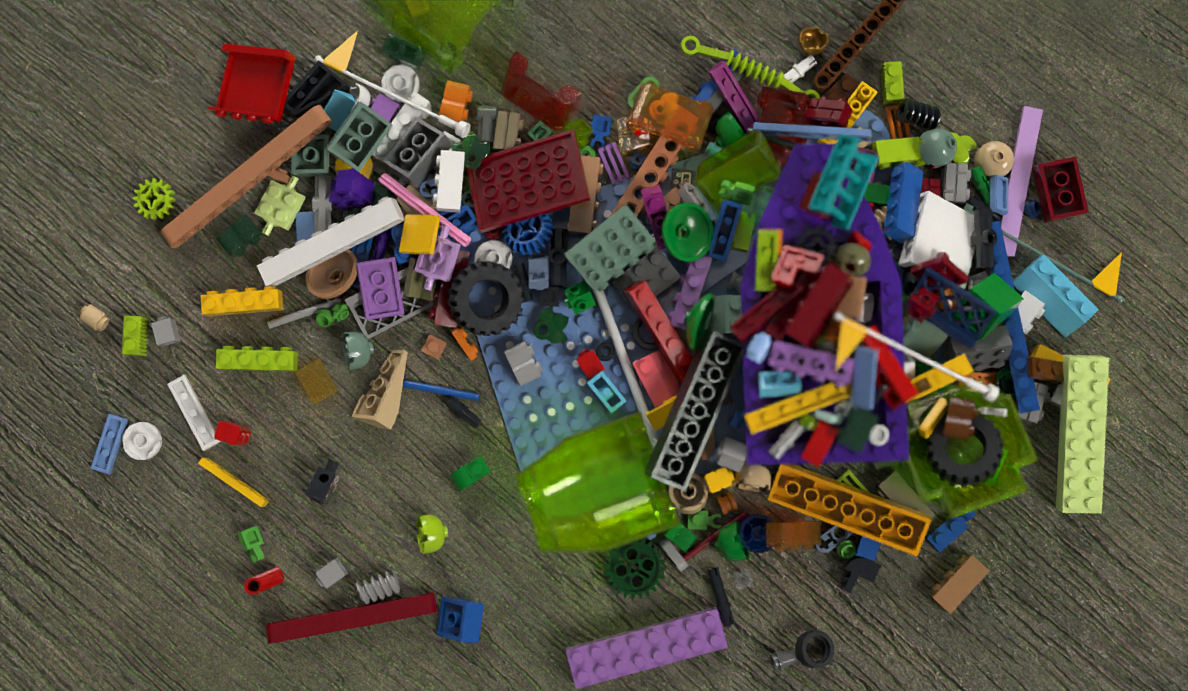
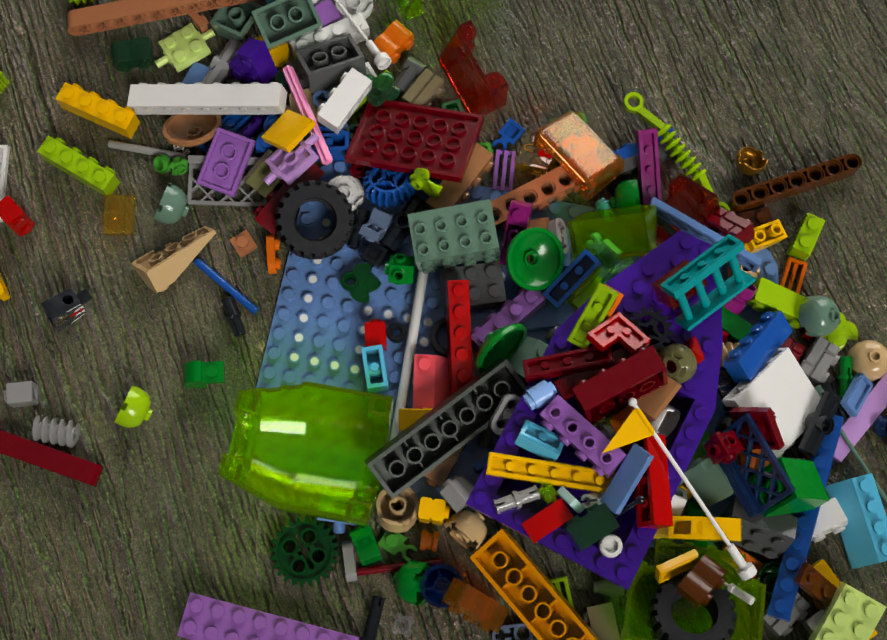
camera: 25 degrees right, 10 degrees down
(165, 331) = (16, 99): light grey brick -> none
(460, 619) = (111, 506): blue slope -> none
(523, 363) = (314, 300): light grey brick -> none
(556, 215) = (420, 181): none -> lime plate
(582, 131) = (491, 126): clear neon green brick -> none
(632, 160) = (523, 176): blue plate -> none
(680, 177) = (559, 212): black sticker -> none
(735, 374) = (503, 413): none -> light grey plate
(799, 70) = (726, 180): white pin -> none
(918, 114) = (818, 276): black piece -> none

